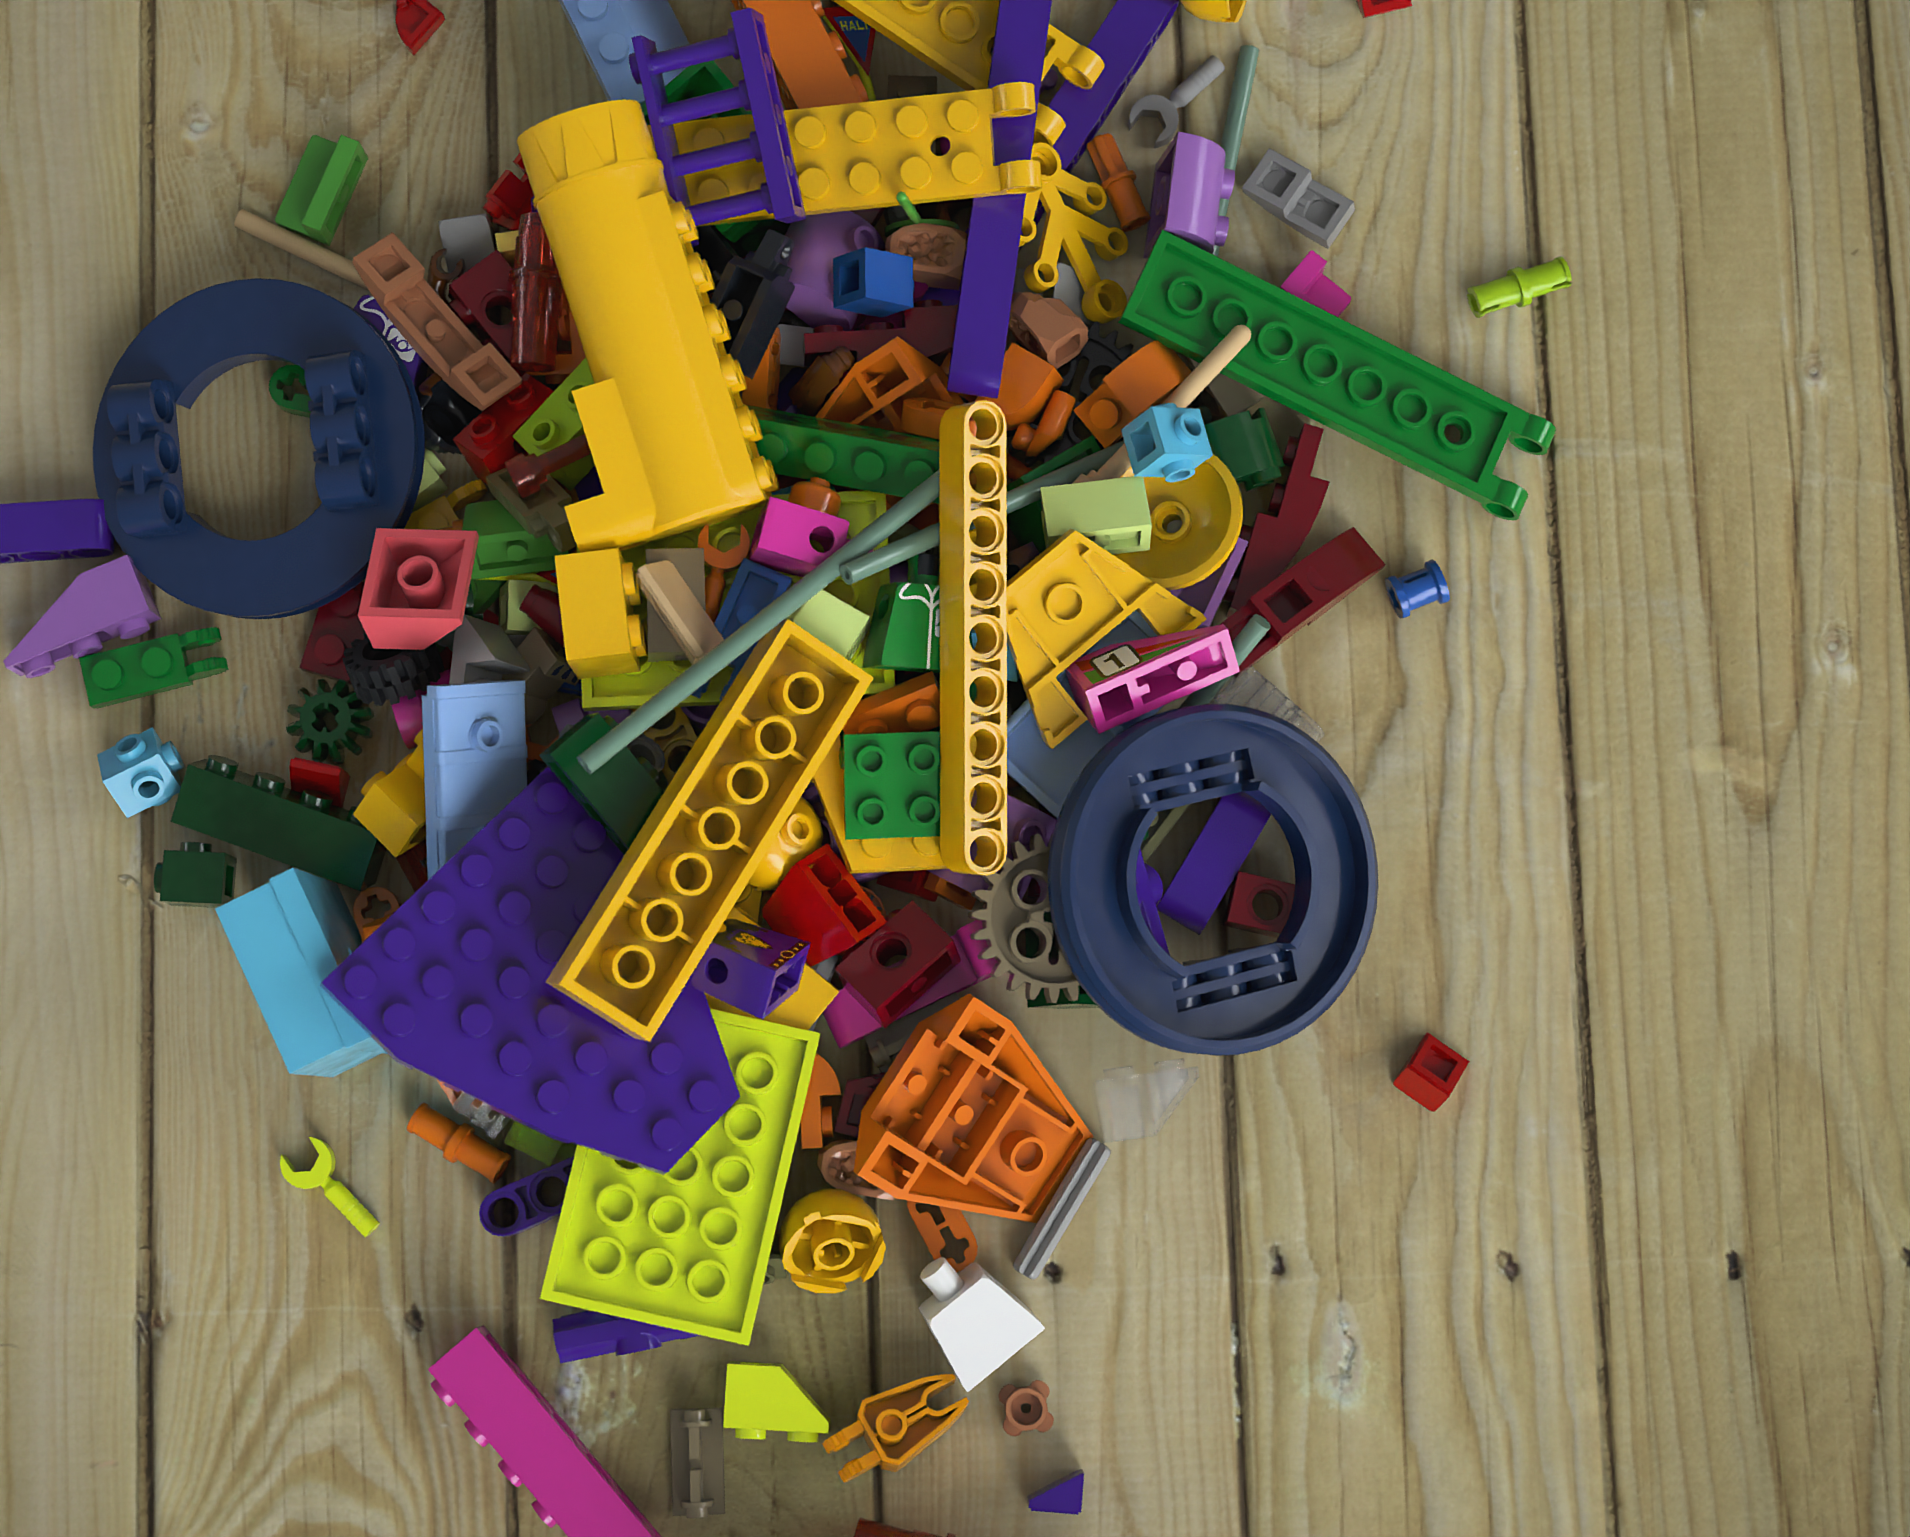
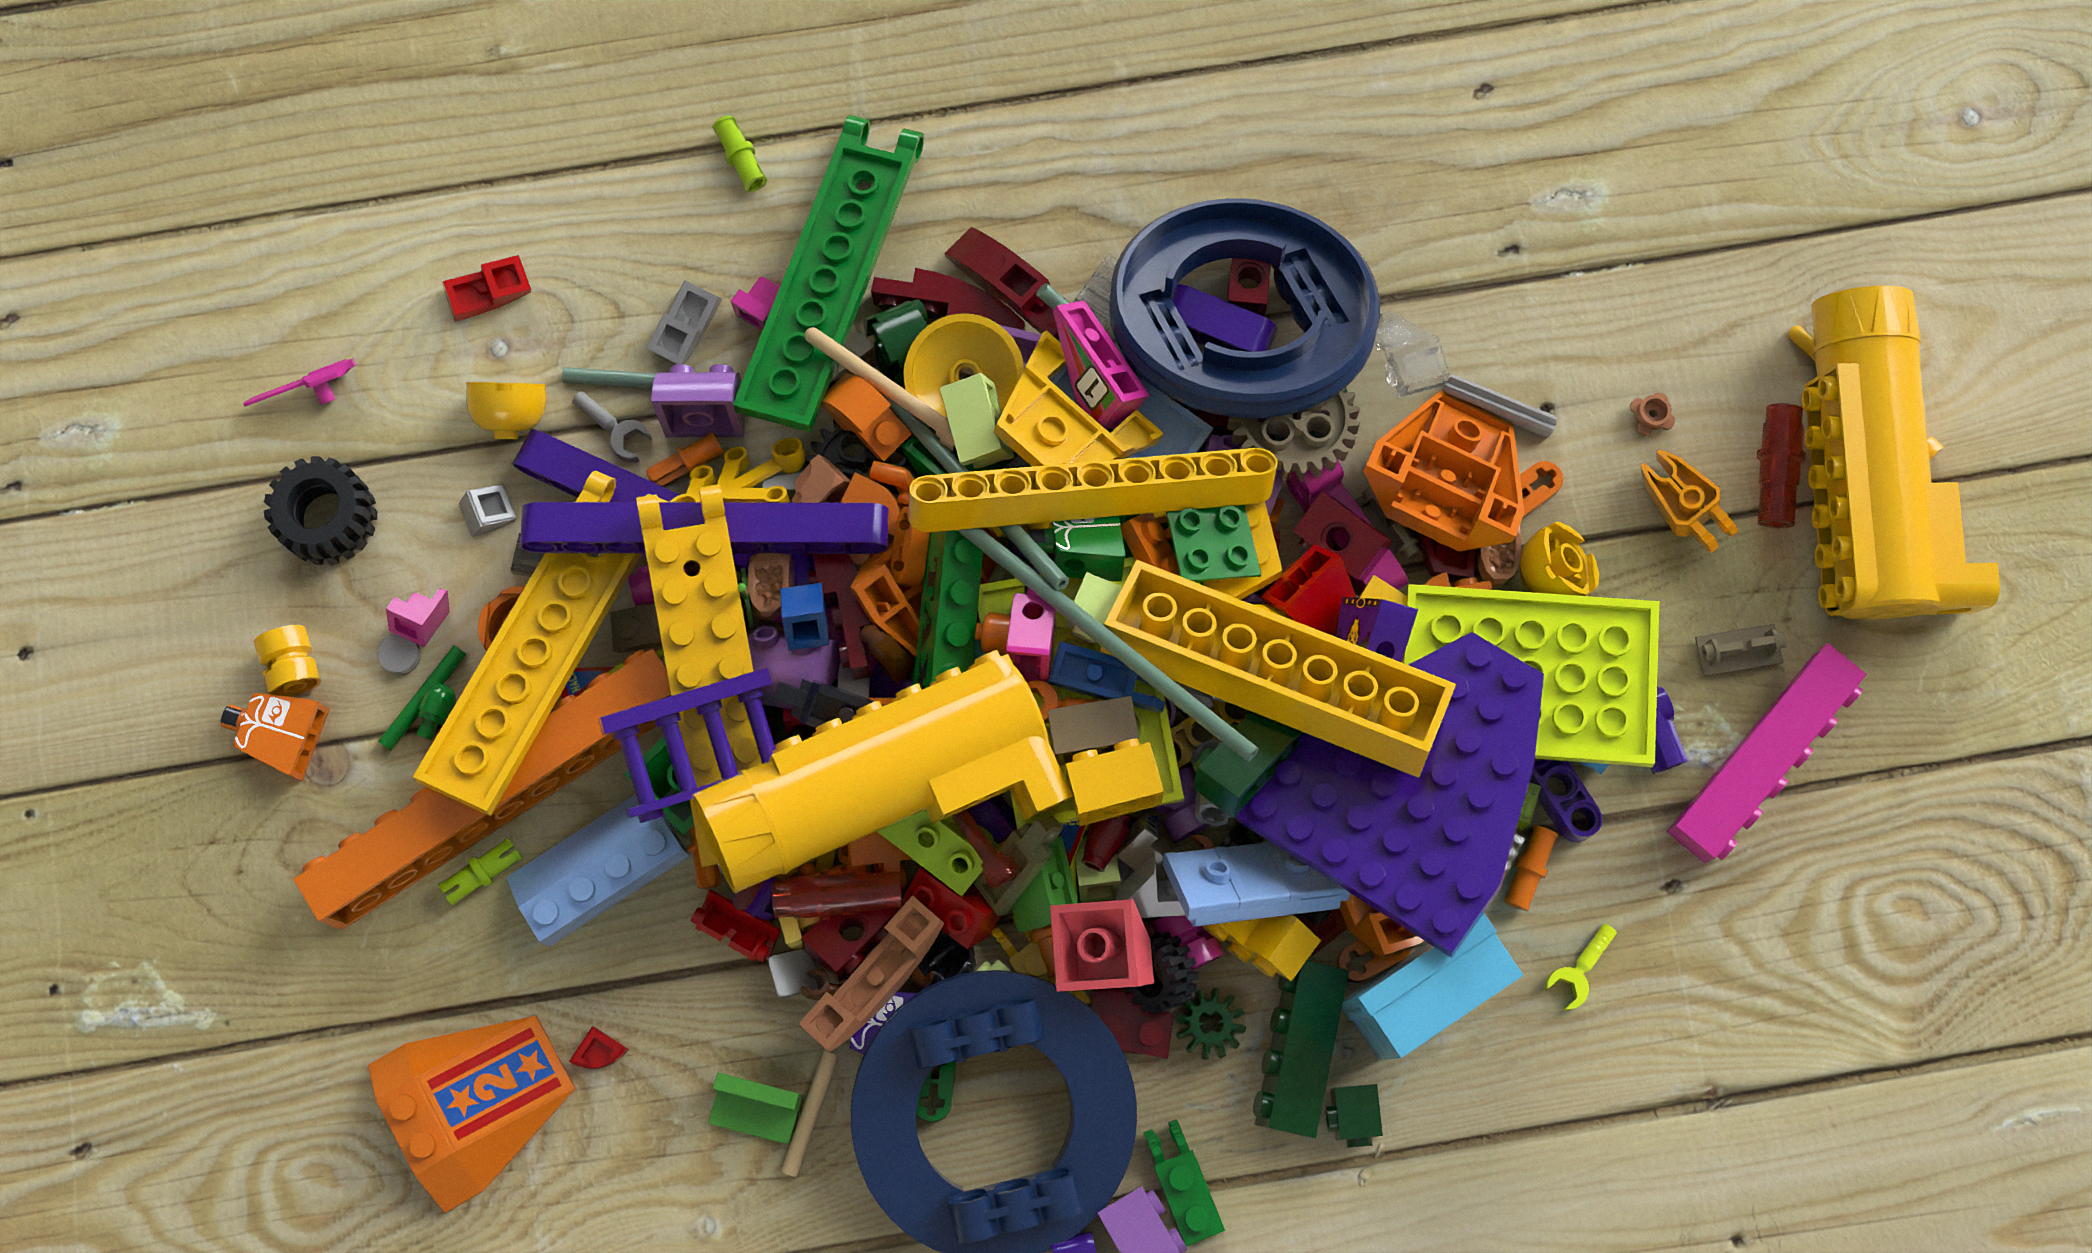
camera: 95 degrees left, 5 degrees down
(141, 771) = (1276, 1172): medium azure brick -> none
(319, 777) = (1258, 1026): red slope -> none
(678, 609) = (1106, 716): tan slope -> none
(770, 1399) = (1686, 599): neon yellow slope -> none
(974, 1319) = (1599, 453): white torso -> none
(1060, 1496) = (1712, 378): dark purple slope -> none
(1167, 442) = (912, 371): medium azure brick -> none
(1417, 589) = (987, 201): blue bush -> none
(1431, 1073) = (1352, 156): red slope -> none

